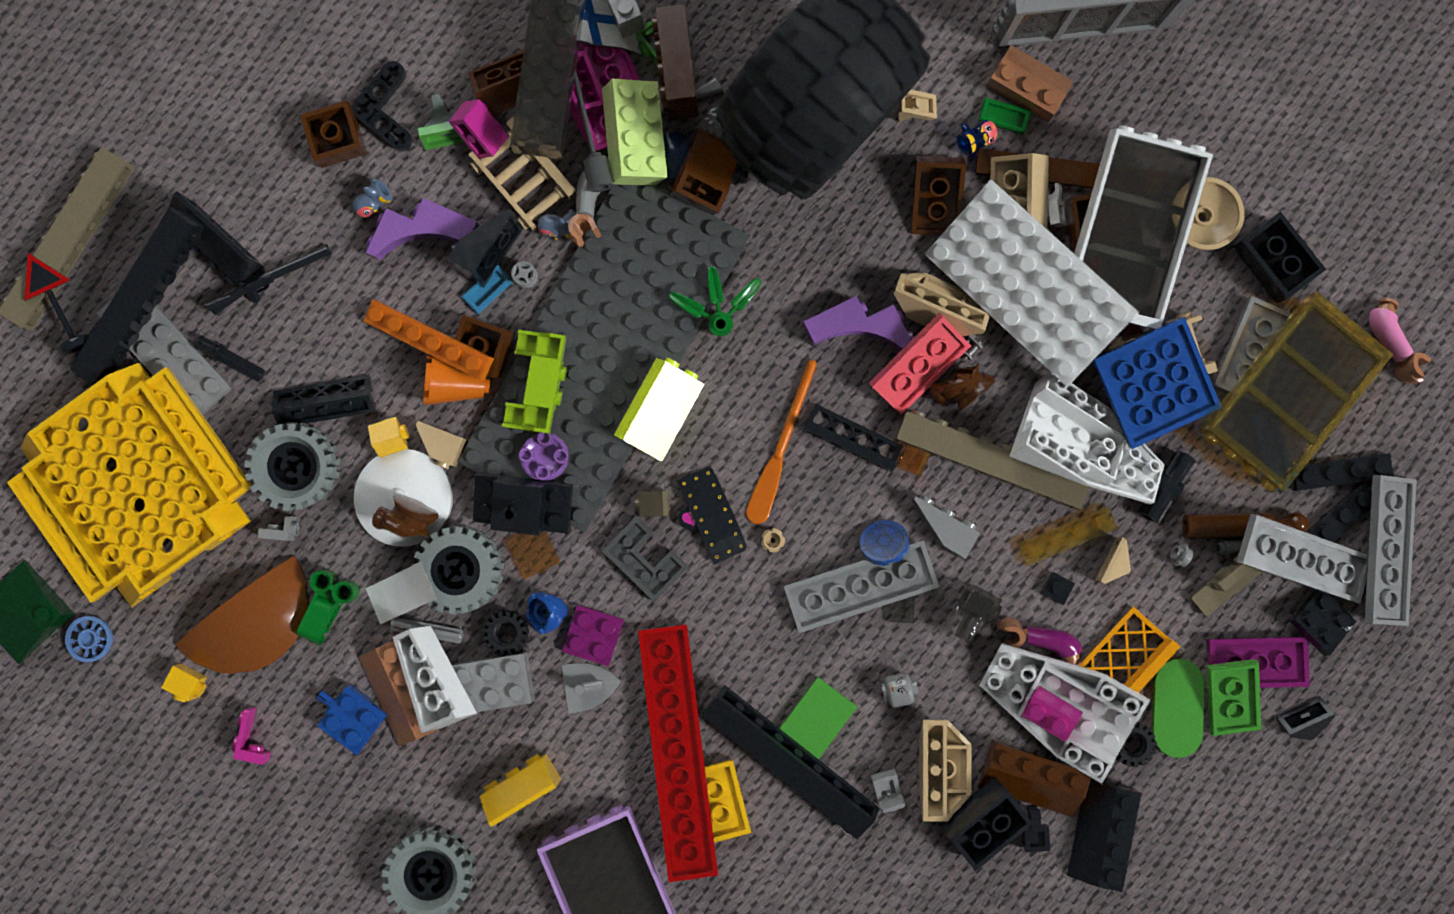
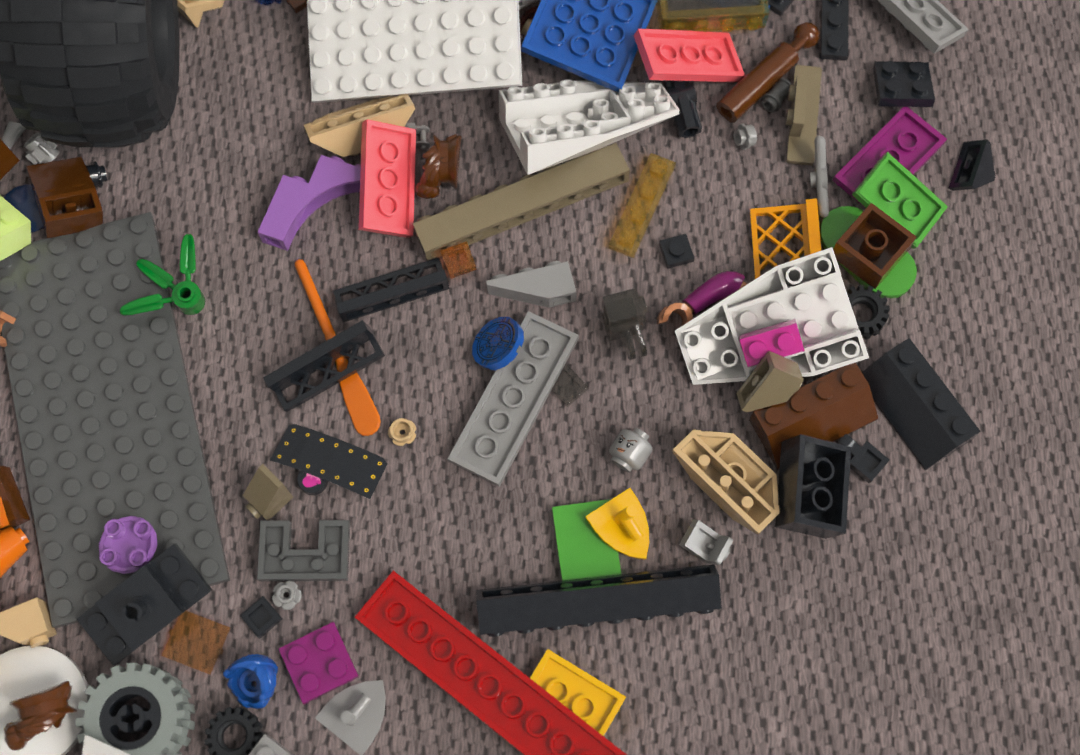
camera: 40 degrees left, 15 degrees down
(542, 384) = (69, 482): lime bracket -> none
(584, 574) = (261, 617): none -> black tile
(610, 582) = (289, 602): none -> light grey plate
(659, 408) = (197, 411): brick -> none
(768, 445) = (319, 357): none -> black fence
(849, 729) = (622, 525): none -> yellow shield
(937, 193) = (277, 48): reddish brown slope -> none
(1023, 738) = (770, 383): none -> dark tan slope
(1116, 562) = (701, 187): tan slope -> none
(1182, 714) = (873, 245): none -> reddish brown brick
(1198, 631) = (819, 178): none -> light grey piece
(1200, 467) = (688, 55): none -> coral plate
(1304, 558) = (837, 47): light grey plate -> none

